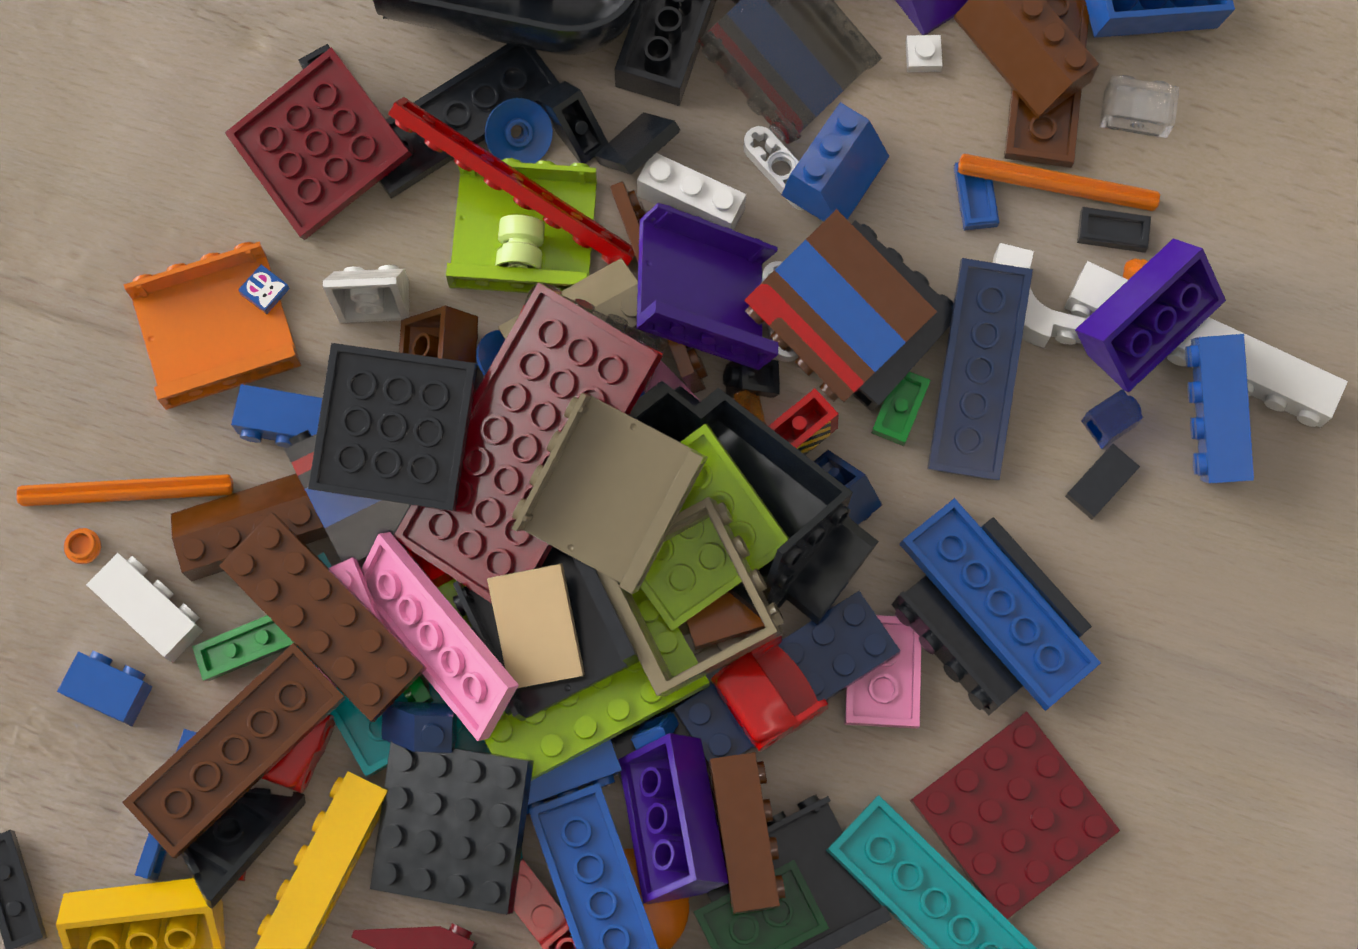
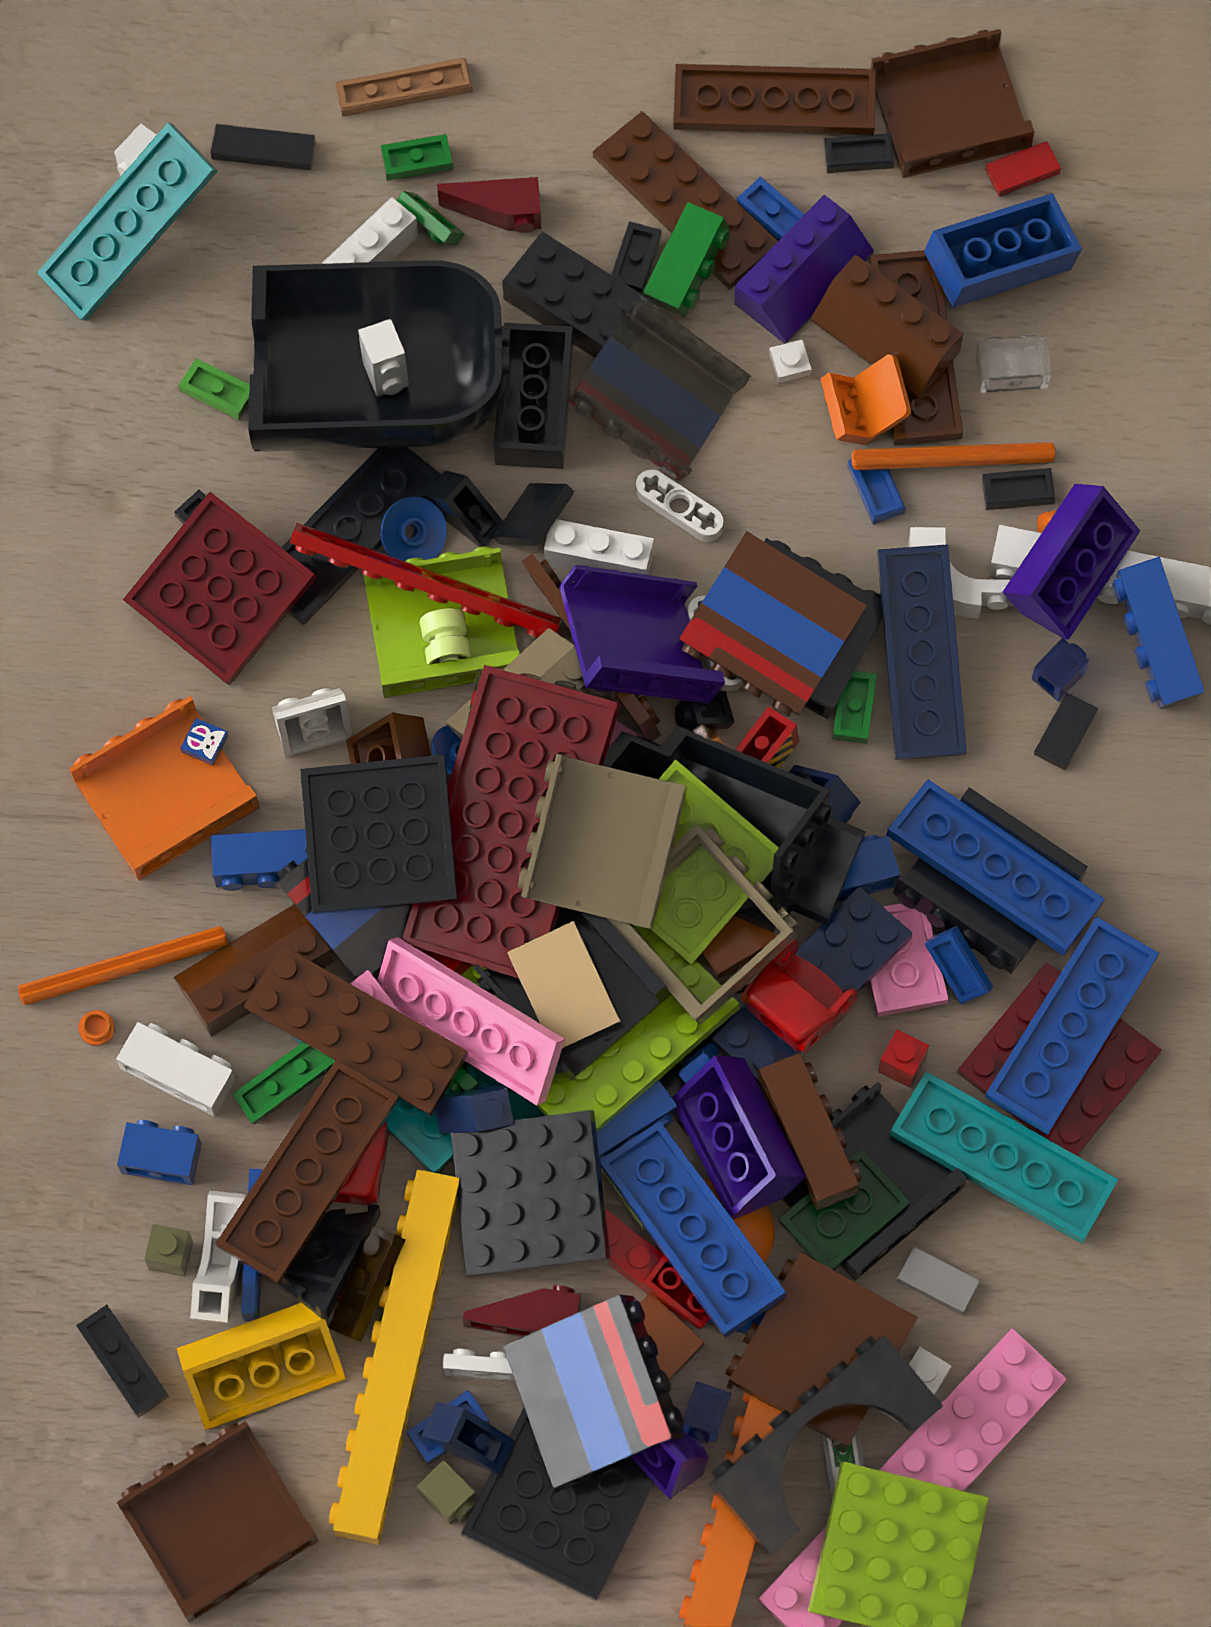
camera: 10 degrees left, 5 degrees down
(85, 790) = (168, 1250): none -> olive brick
(121, 836) = (219, 1272): none -> white arch
(268, 875) = (366, 1283): none -> dark brown plate
(837, 166) = (734, 490): blue slope -> none
(859, 776) = (903, 1058): none -> red brick
(879, 573) = (873, 867): none -> blue slope
(938, 695) = (958, 965): none -> blue tile
(988, 110) = (866, 403): none -> orange bracket
(1036, 787) = (1071, 1025): none -> blue plate

